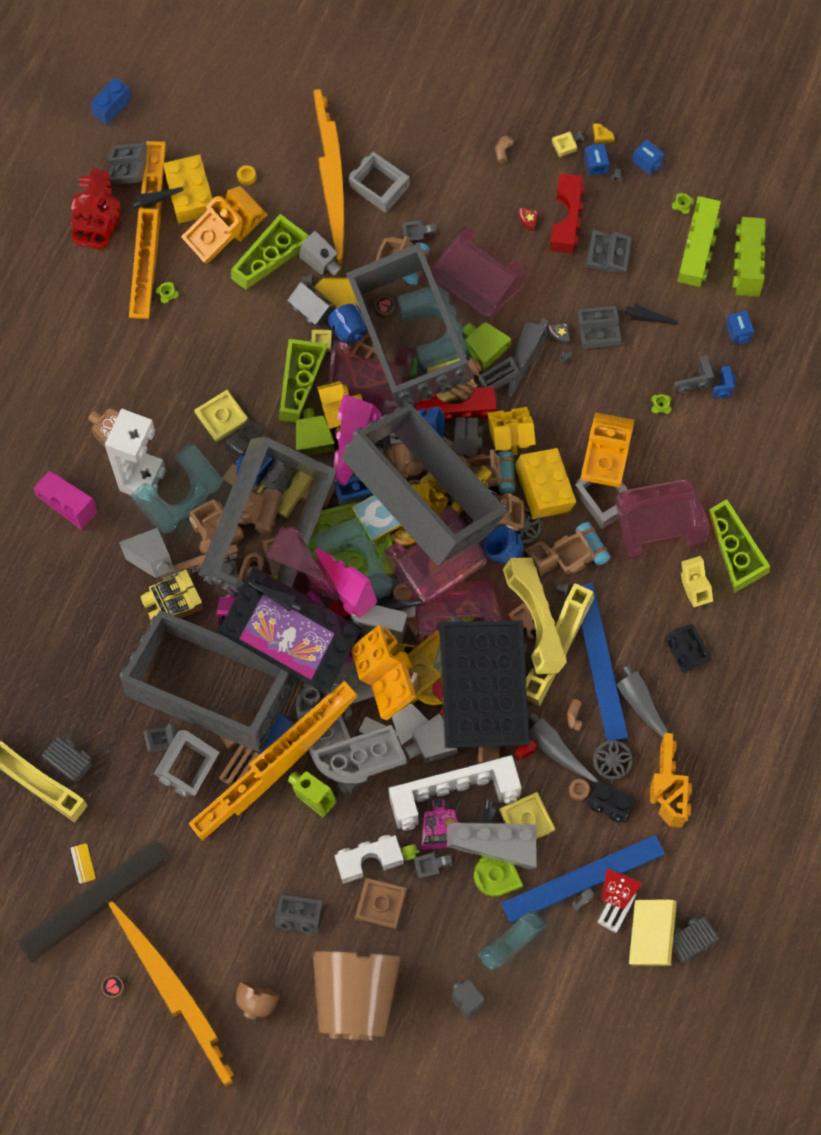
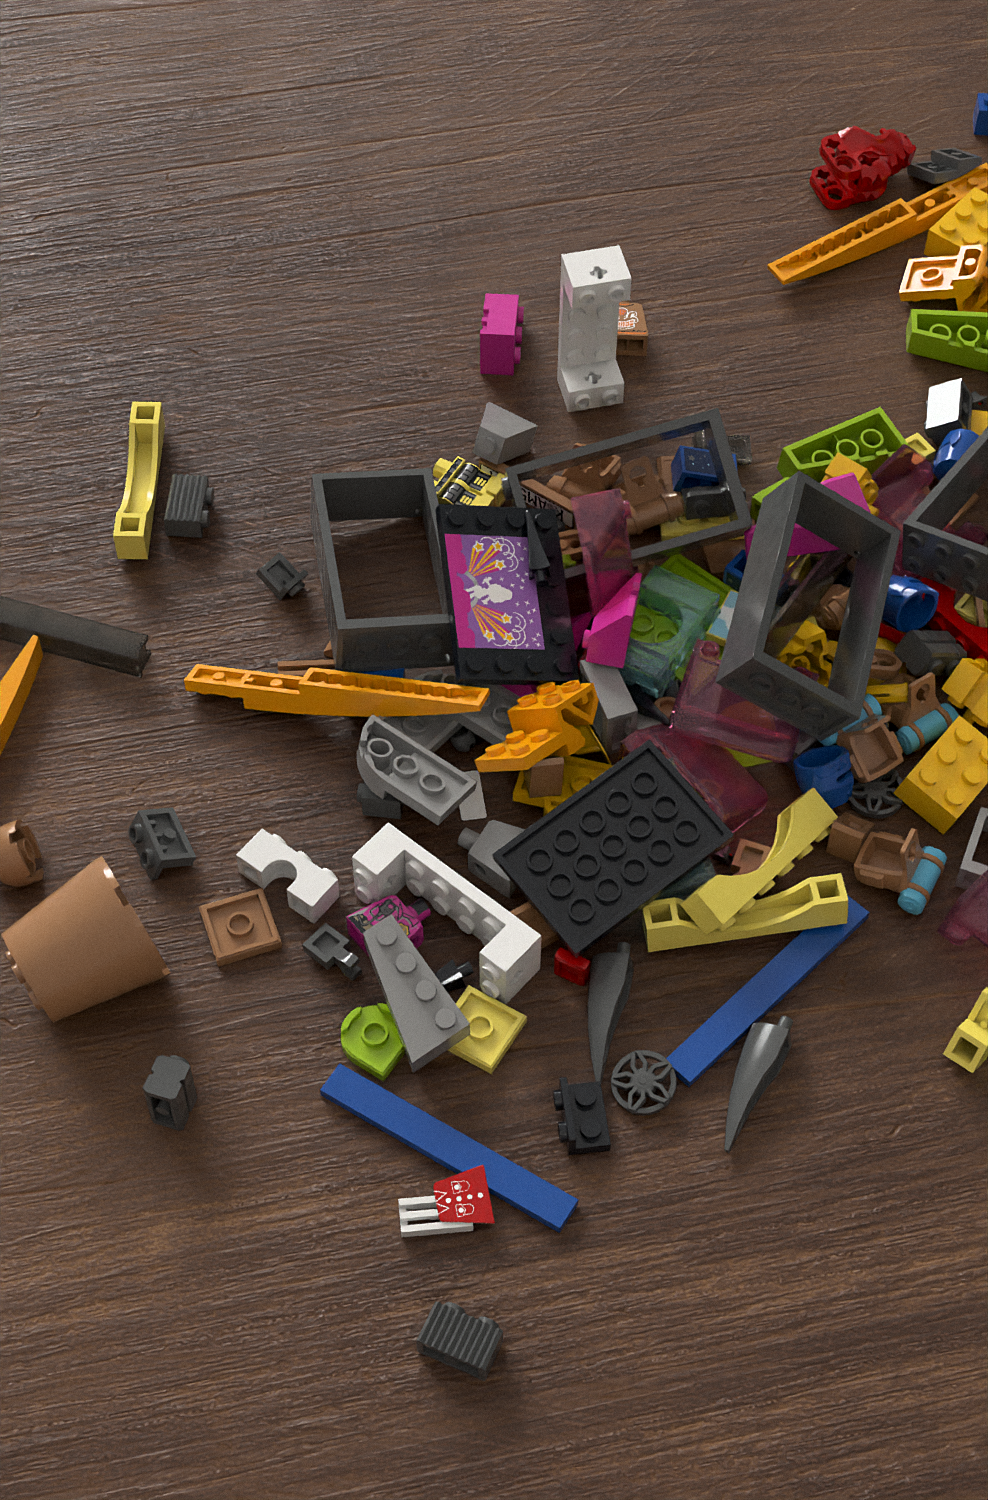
camera: 55 degrees right, 15 degrees down
(83, 863) = (75, 595): yellow sticker -> none
(147, 200) = (921, 199): black piece -> none
(169, 286) = (832, 285): lime plate -> none
(181, 738) = (298, 609): light grey window -> none
(203, 481) = (559, 426): clear light blue arch -> none
(221, 416) = (738, 411): light yellow tile -> none
(312, 792) = (328, 749): lime torso -> none
(407, 721) = (504, 807): white sticker -> none
(409, 852) = (332, 915): lime plate -> none
(512, 941) = (288, 1107): clear light blue arch -> none
(572, 715) = (664, 996): medium nougat arm -> none
(579, 789) = (570, 1065): medium nougat tile -> none
(585, 897) = (419, 1163): dark grey tile -> none
(652, 932) = (430, 1277): light yellow tile -> none
(675, 787) = (655, 1165): light orange piece -> none
(687, 648) = (879, 1081): black bracket -> none

